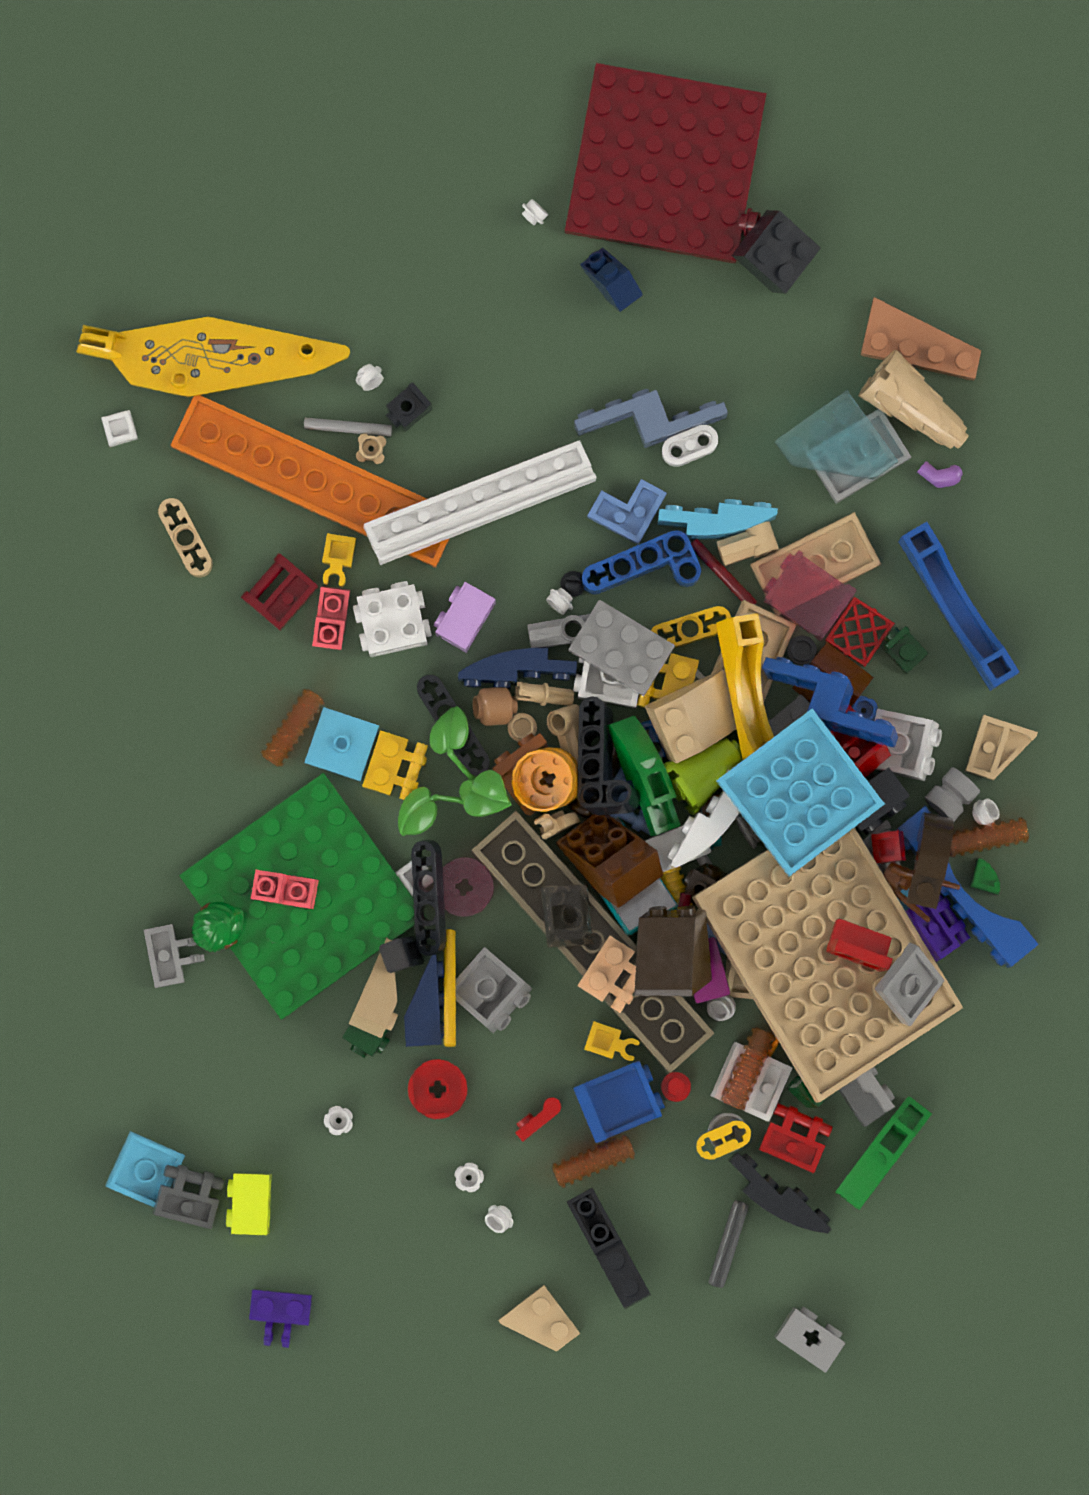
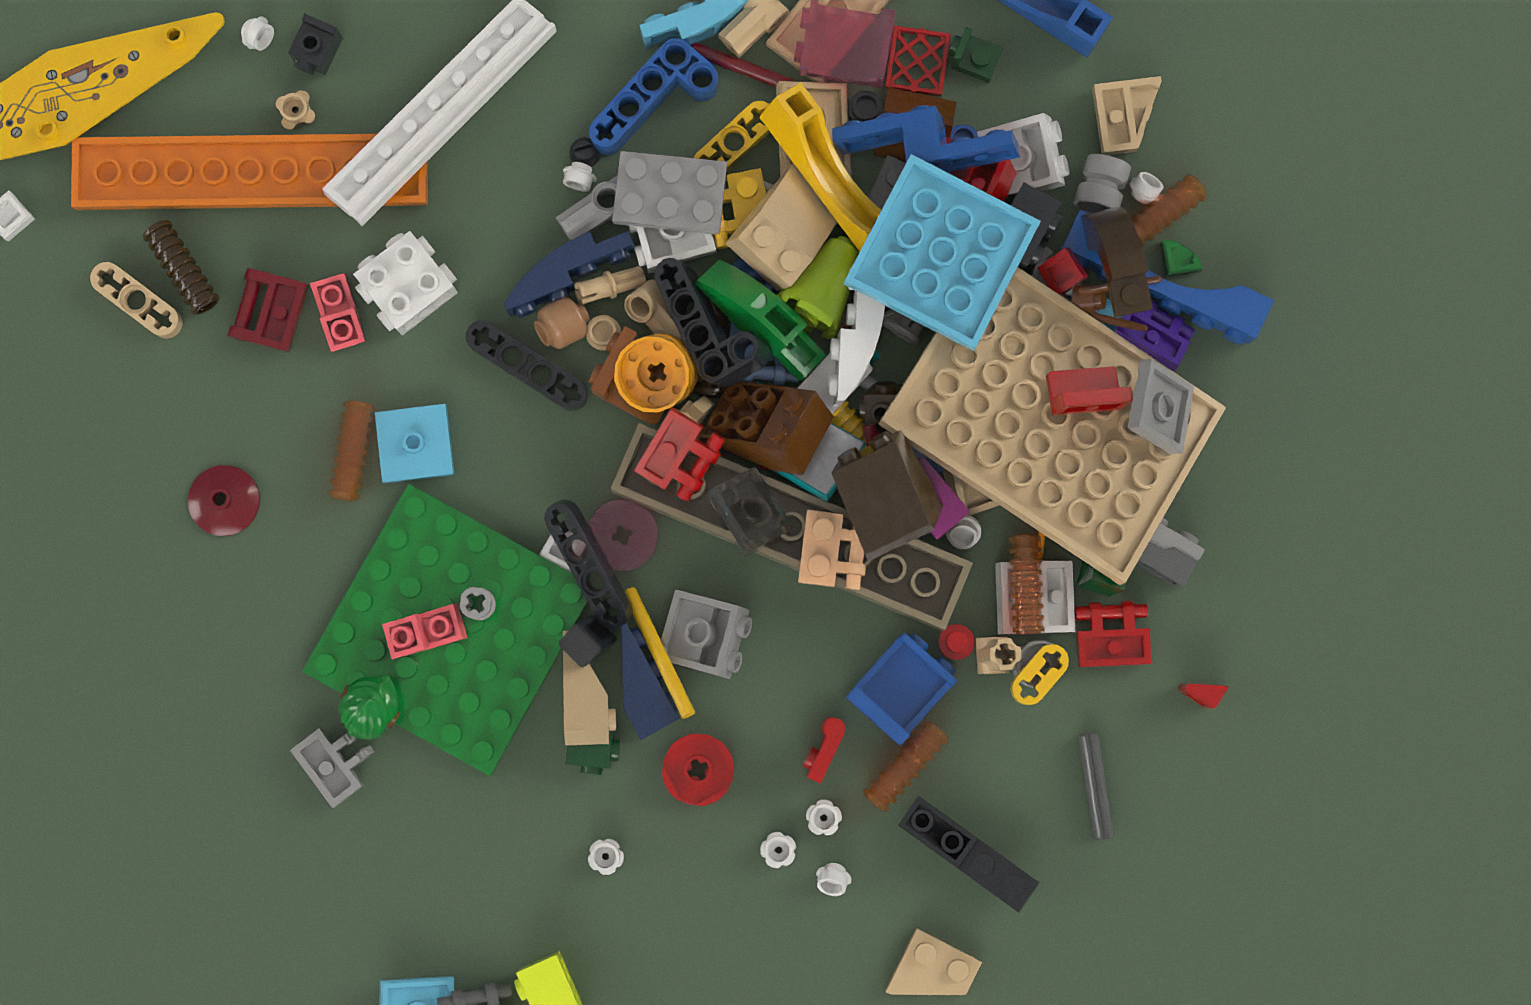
camera: 30 degrees left, 0 degrees up
(180, 734) = (240, 505): none -> dark red dish
(230, 529) = (181, 267): none -> dark brown piece
(338, 554) = (312, 239): yellow plate -> none
(341, 893) = (466, 602): none -> light grey bush
(347, 426) = (258, 98): light grey bar -> none
(386, 763) = (473, 441): yellow plate -> none
(464, 617) = (483, 241): lavender hinge -> none
(479, 794) = (589, 425): bright green plant -> none
(514, 1178) = (833, 817): none -> white plate
(528, 842) = (668, 450): none -> red plate
(605, 1041) = (857, 628): yellow plate -> none
(628, 519) = (613, 54): medium blue plate -> none
(699, 1110) = (996, 655): none -> tan piece
(788, 1205) = (1138, 713): black slope -> none
(820, 1353) = (1254, 855): light grey brick -> none
(842, 1214) = (1205, 695): none -> red slope
(883, 1153) = (1216, 606): green slope -> none

